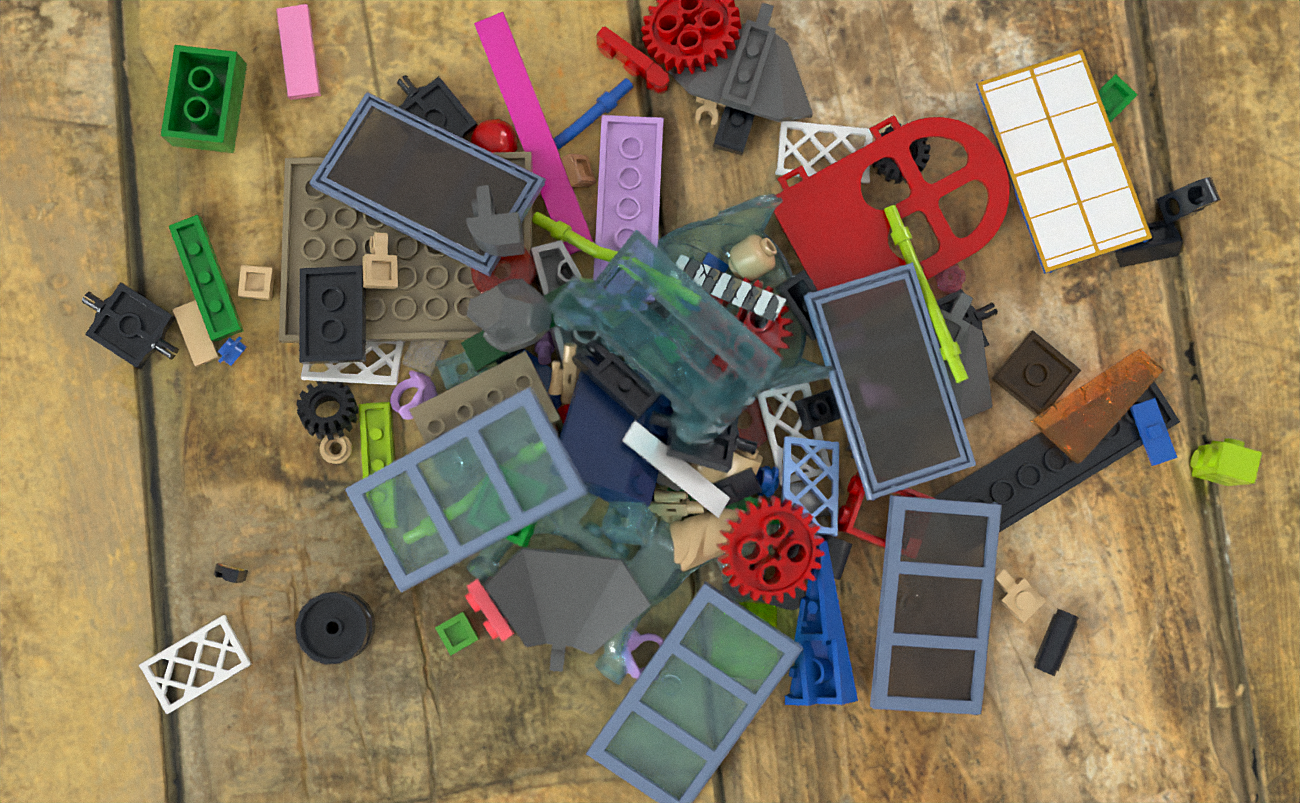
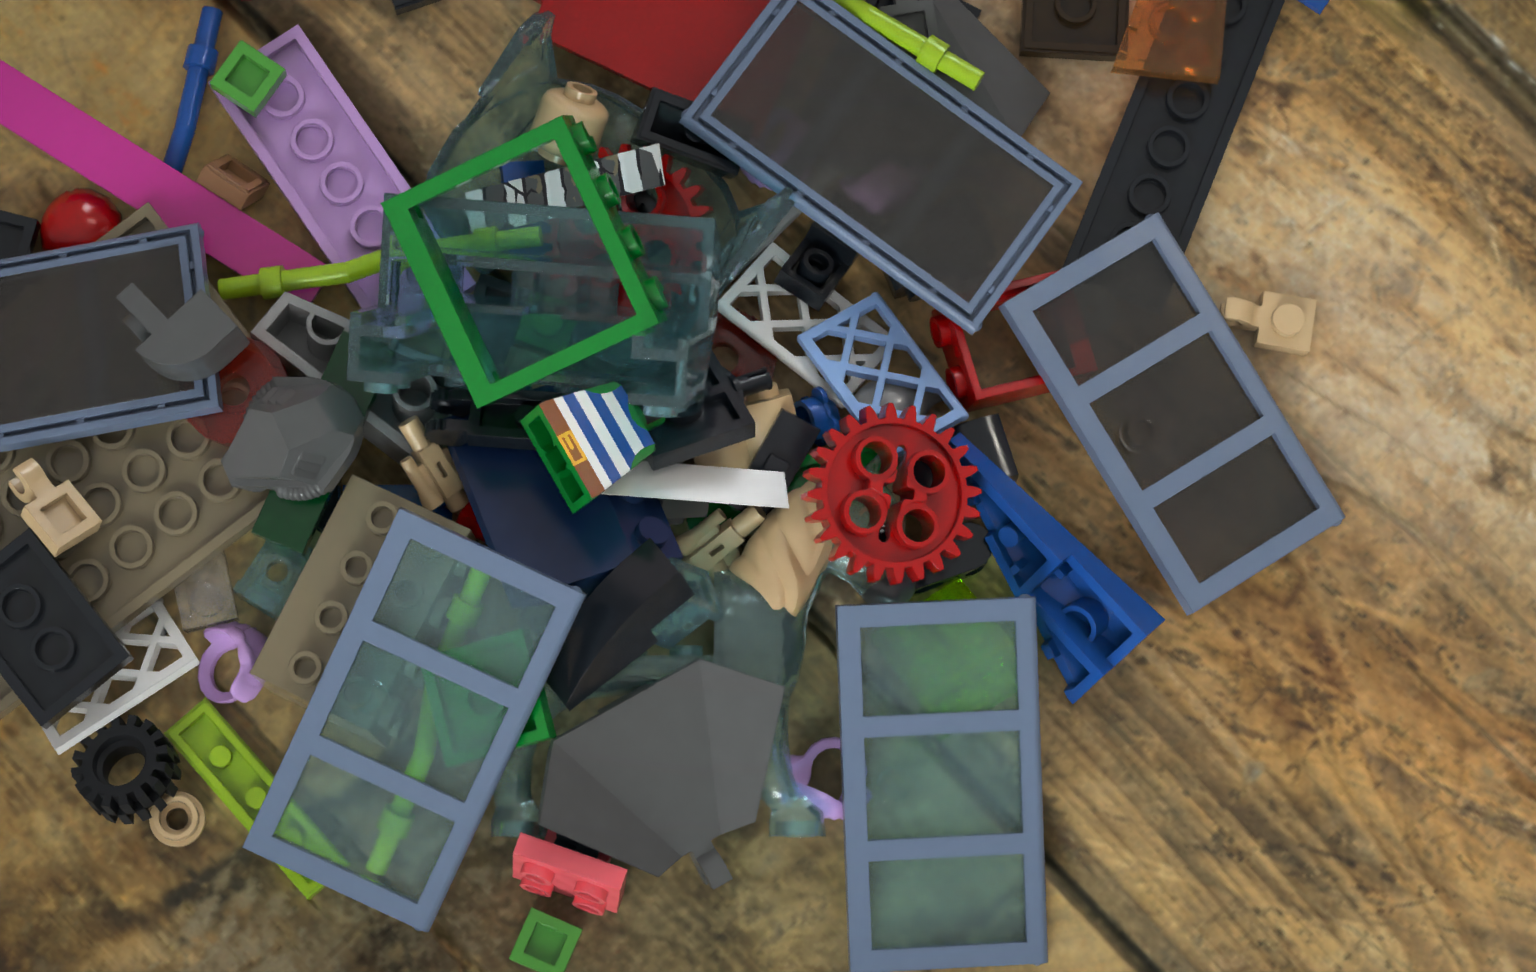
camera: 40 degrees left, 5 degrees down
(544, 349) = (371, 465): lavender bar -> none
(594, 516) = (617, 623): none -> black slope
(620, 127) = (248, 78): none -> bright green plate
(626, 304) = (445, 298): none -> green window
(643, 421) = (590, 440): none -> torso
(1056, 642) = (1371, 345): black piece -> none

